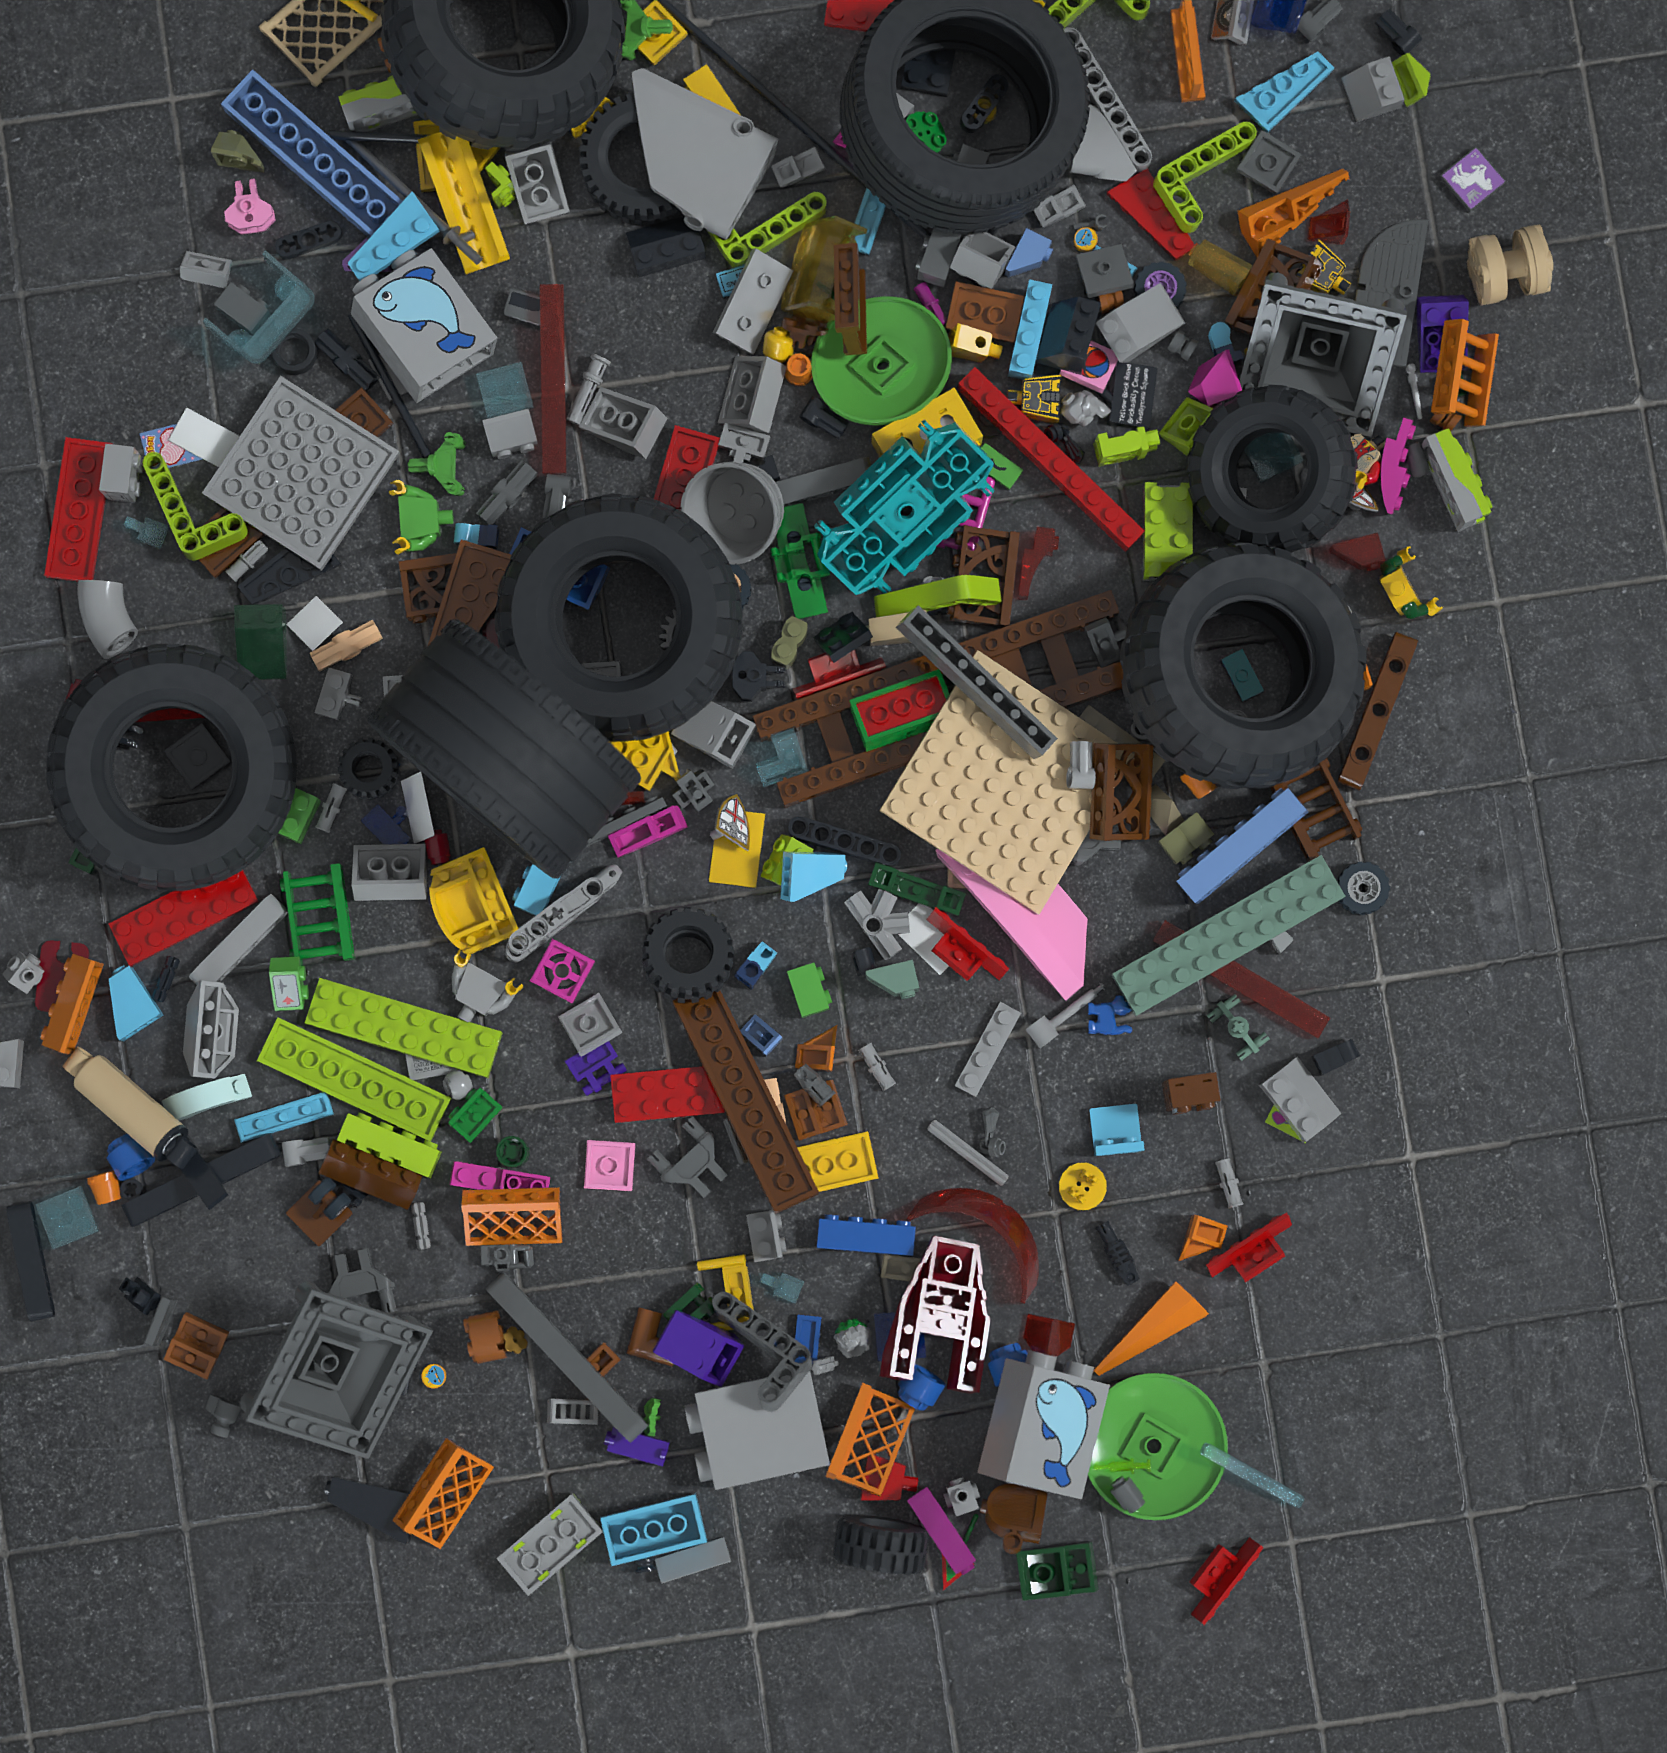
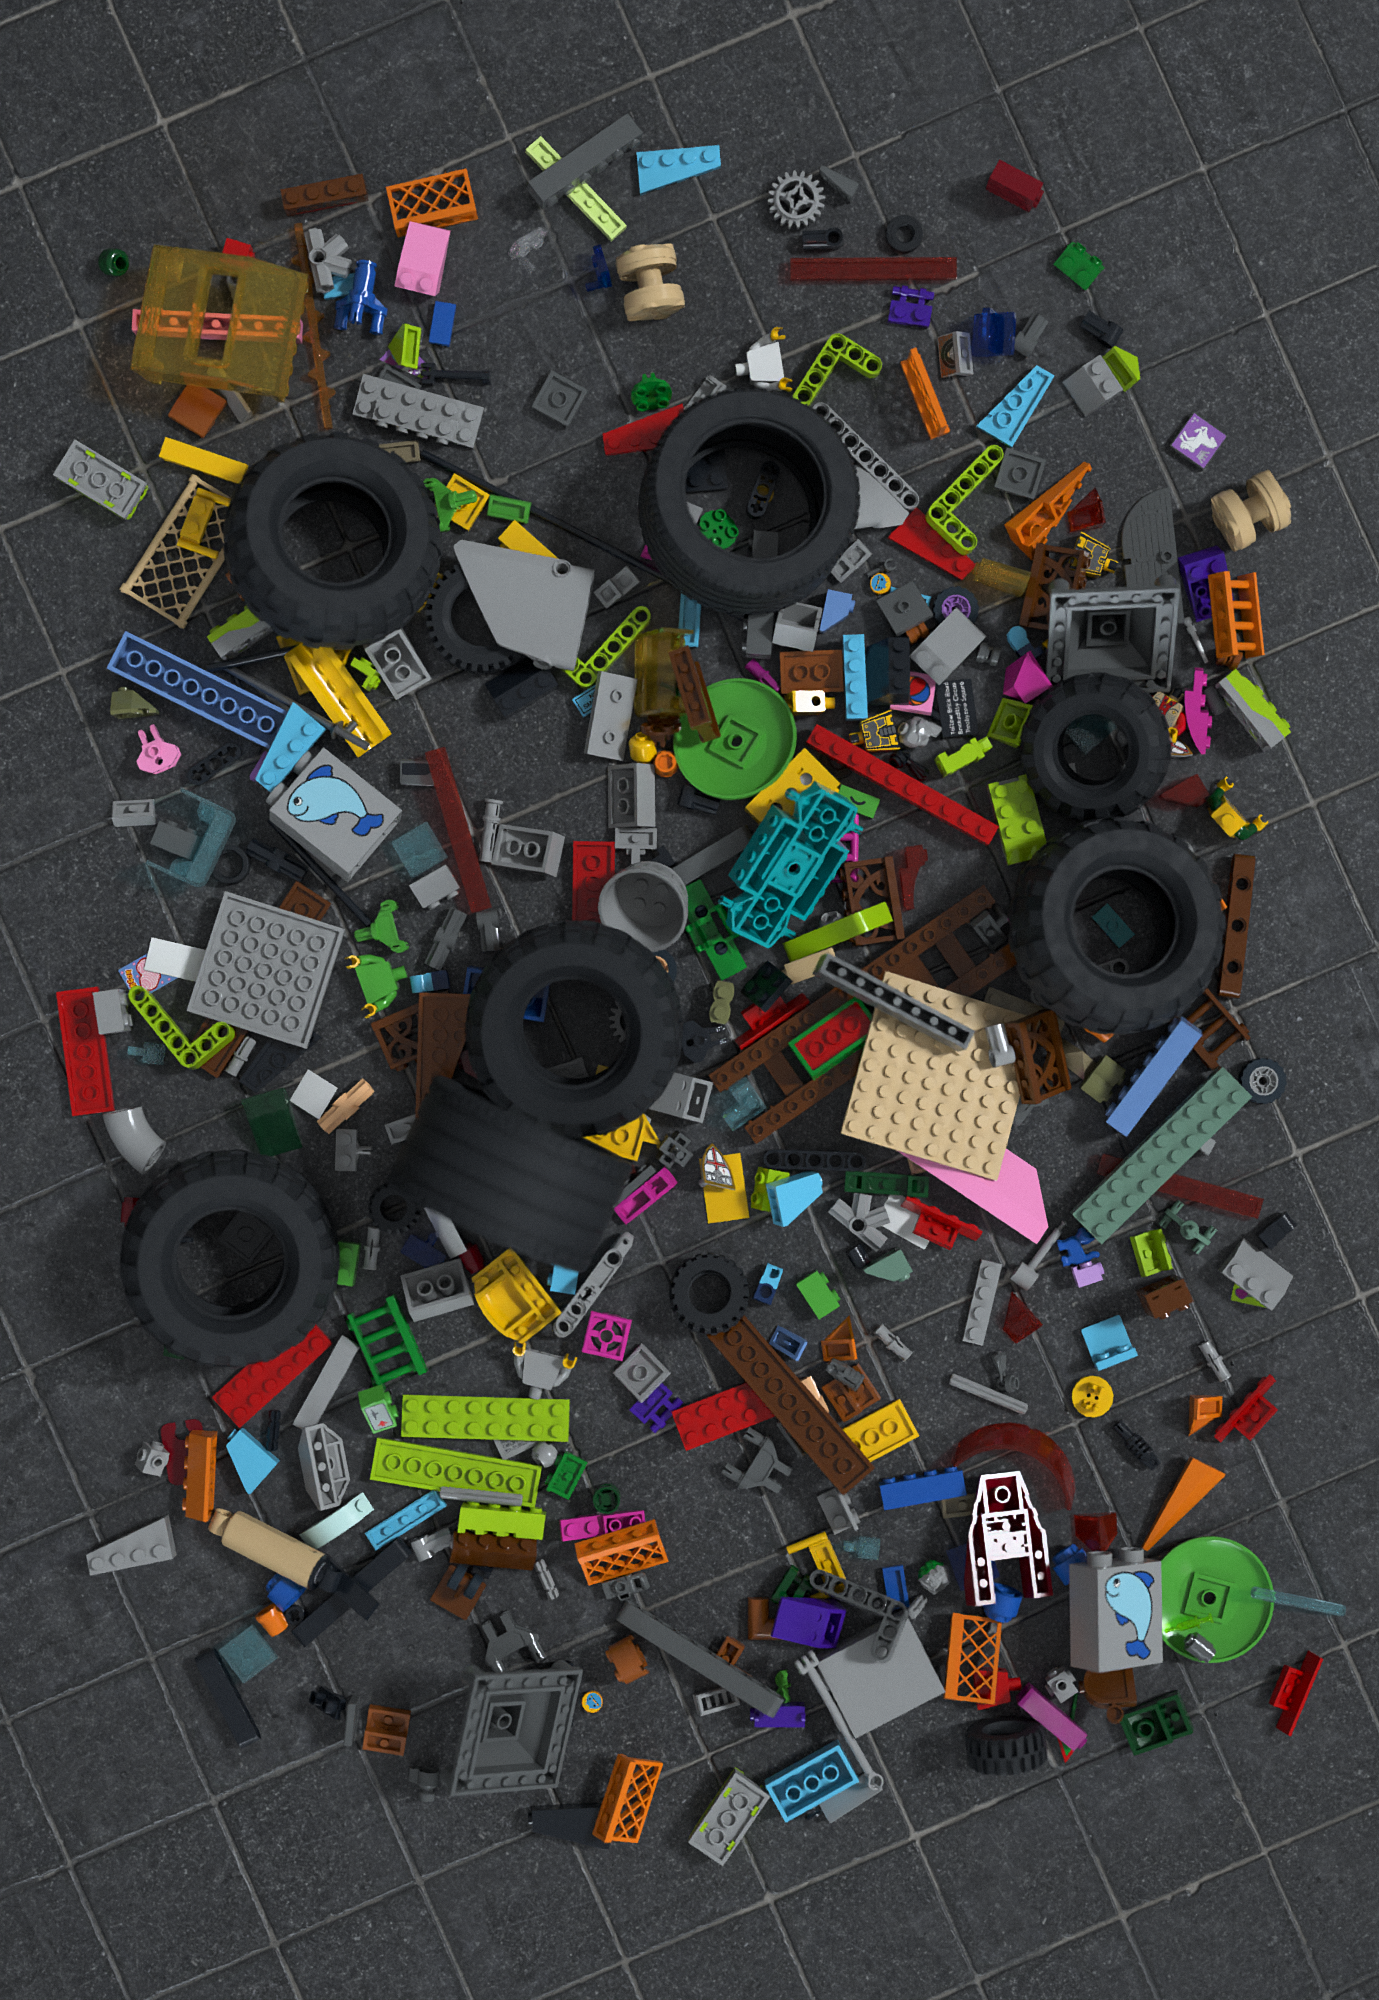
camera: 15 degrees left, 5 degrees up
(374, 1111) = (481, 1496): none -> light grey axle
(514, 1340) = (656, 1654): pearl gold plant -> none
(609, 1165) = (690, 1486): bright pink tile -> none
(685, 1394) = (808, 1667): none -> light grey hinge
(703, 53) = (508, 508): none -> bright green tile
(1024, 1079) = (1019, 1320): none -> clear red slope
(1113, 1047) = (1087, 1273): none -> lavender brick
(1190, 1043) = (1151, 1252): none -> lime bracket

